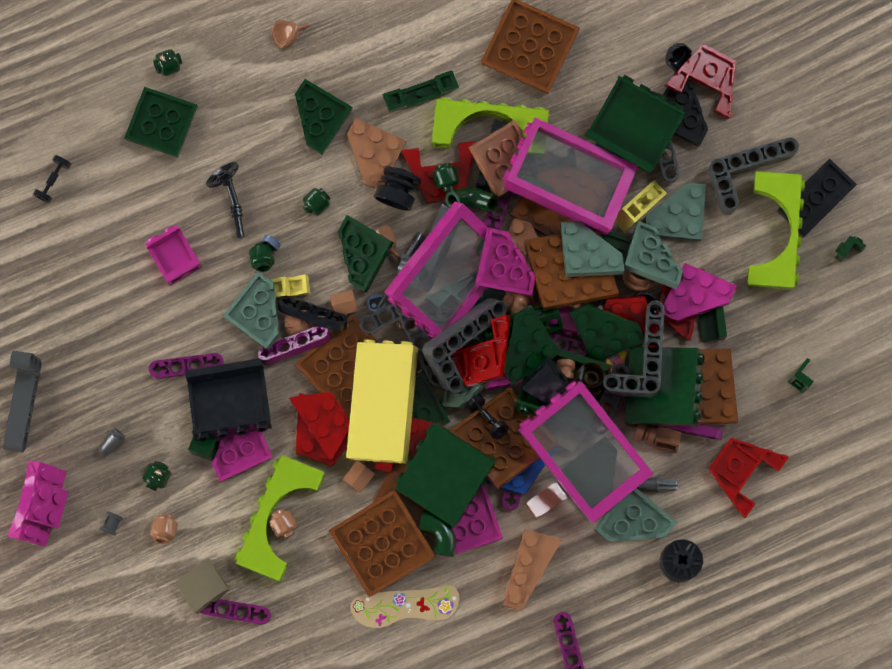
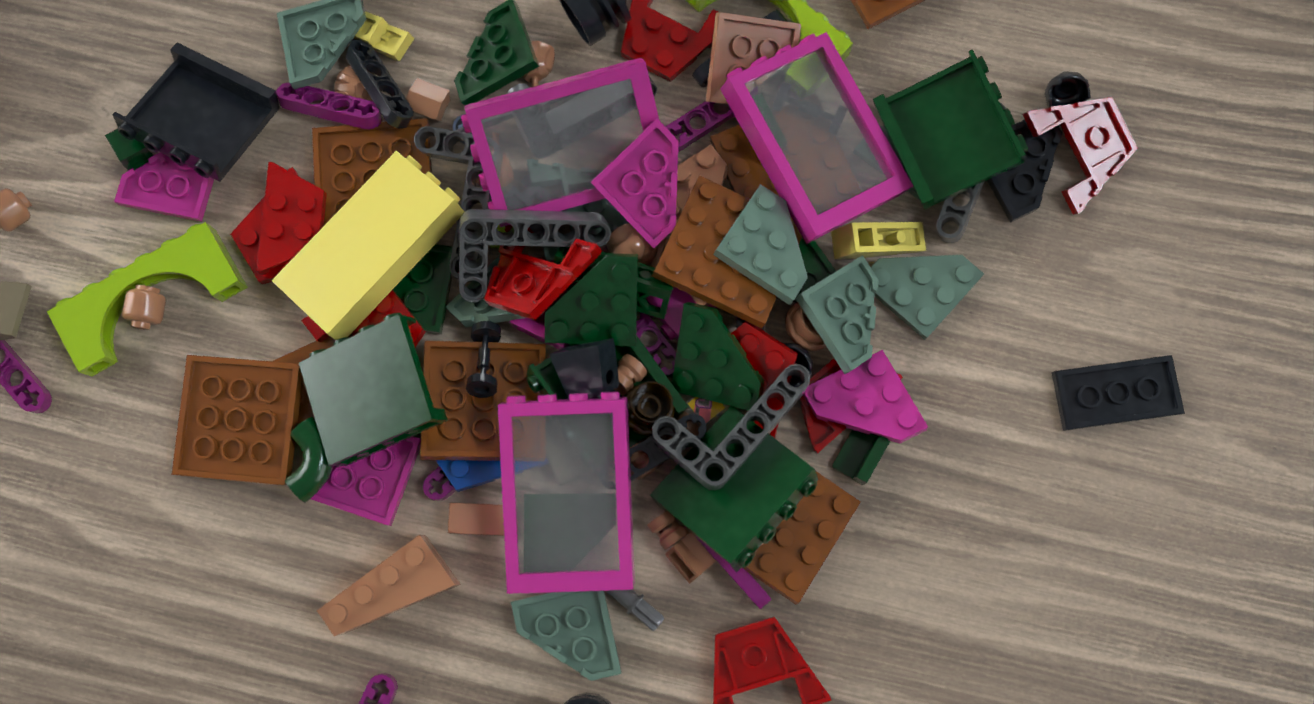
camera: 40 degrees right, 0 degrees up
(111, 442) = (36, 66): flat silver cone -> none
(156, 475) = (50, 141): dark green head -> none
(186, 364) = (192, 40): magenta beam -> none
(358, 476) = (278, 317): nougat piece -> none
(390, 606) = (197, 507): tan sticker -> none
(445, 177) = (662, 33): dark green head -> none
(473, 198) = (677, 83): dark green cylinder -> none
(742, 158) = (1054, 286): dark grey beam -> none
(786, 192) = (1082, 356): lime arch -> none
(799, 379) = (920, 609): dark green panel -> none
(844, 248) = (1106, 483): dark green bracket -> none

